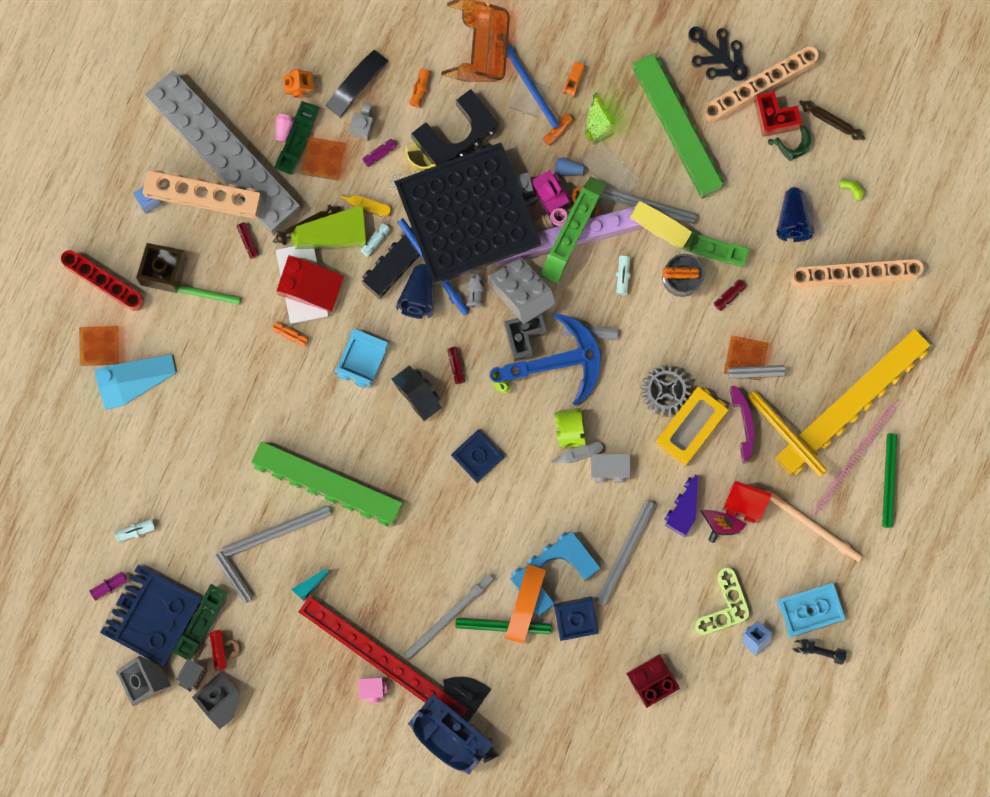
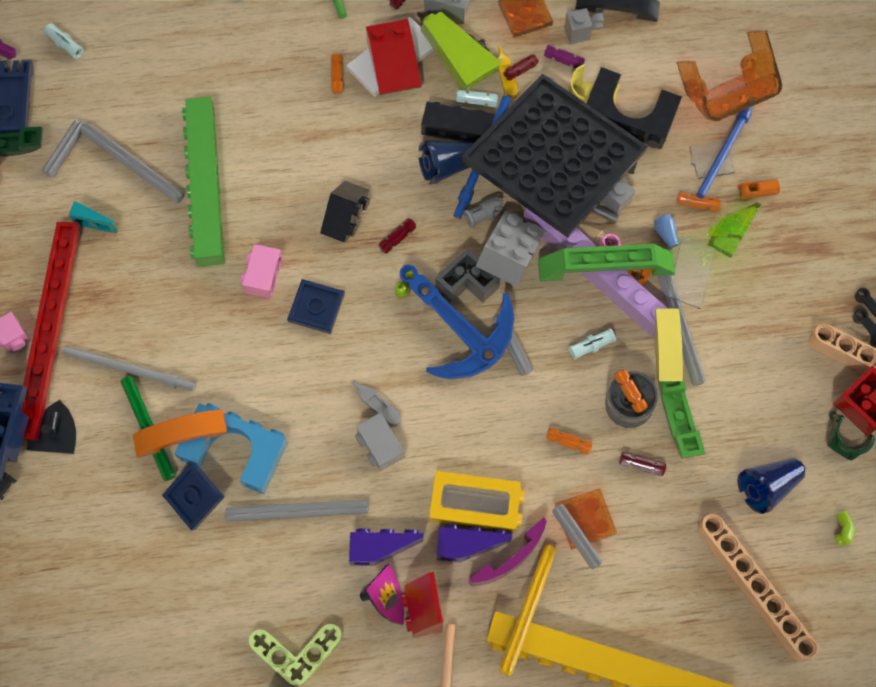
camera: 60 degrees right, 10 degrees down
(361, 358) = (350, 147): medium azure panel -> none
(371, 192) = (521, 67): none -> dark red axle
(420, 88) = (651, 58): orange pin -> none
(429, 480) = (262, 271): none -> bright pink brick
(549, 192) = (631, 223): dark pink brick -> none
(571, 428) = (397, 376): lime brick -> none
(652, 681) = (165, 618): dark red brick -> none
(660, 384) = (489, 452): light grey gear -> none
(677, 126) = (782, 311): bright green brick -> none
(684, 335) = (569, 440): none -> orange axle
(716, 453) = (464, 544): none -> dark purple slope

